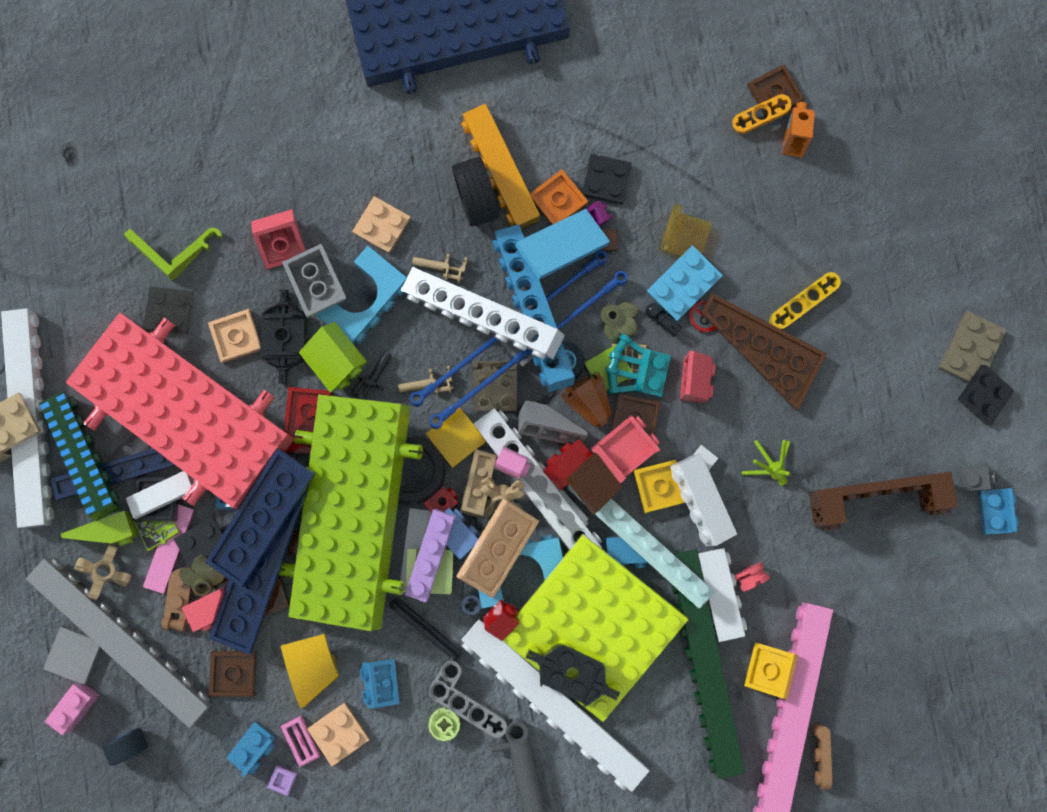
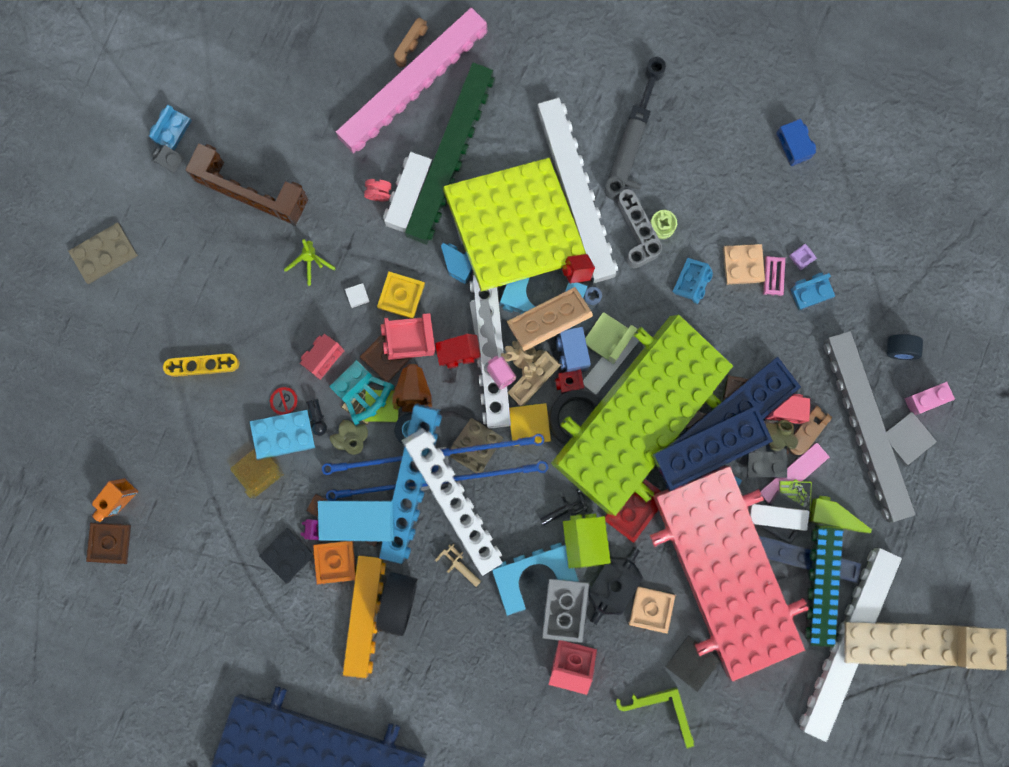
camera: 150 degrees left, 0 degrees up
(86, 566) = (843, 495): tan pin -> none
(232, 674) = (798, 353): reddish brown tile -> none
(309, 667) = (737, 322): yellow slope -> none
(381, 225) = (485, 629): light nougat plate -> none
(424, 383) = (527, 480): tan piece -> none
(425, 628) = (636, 298): black axle -> none
(430, 555) = (602, 343): lavender plate -> none
(547, 424) = (455, 391): light grey slope -> none
(585, 687) = (546, 185): black plate -> none
(594, 483) = (449, 323): reddish brown tile -> none
(654, 552) = (441, 262): light aqua plate -> none
(703, 500) = (377, 264): white brick -> none
(758, 123) = (118, 522): light orange beam -> none
(771, 670) = (407, 118): yellow plate -> none
(775, 354) = (250, 336): reddish brown wing -> none
(986, 395) = (118, 213): black plate -> none

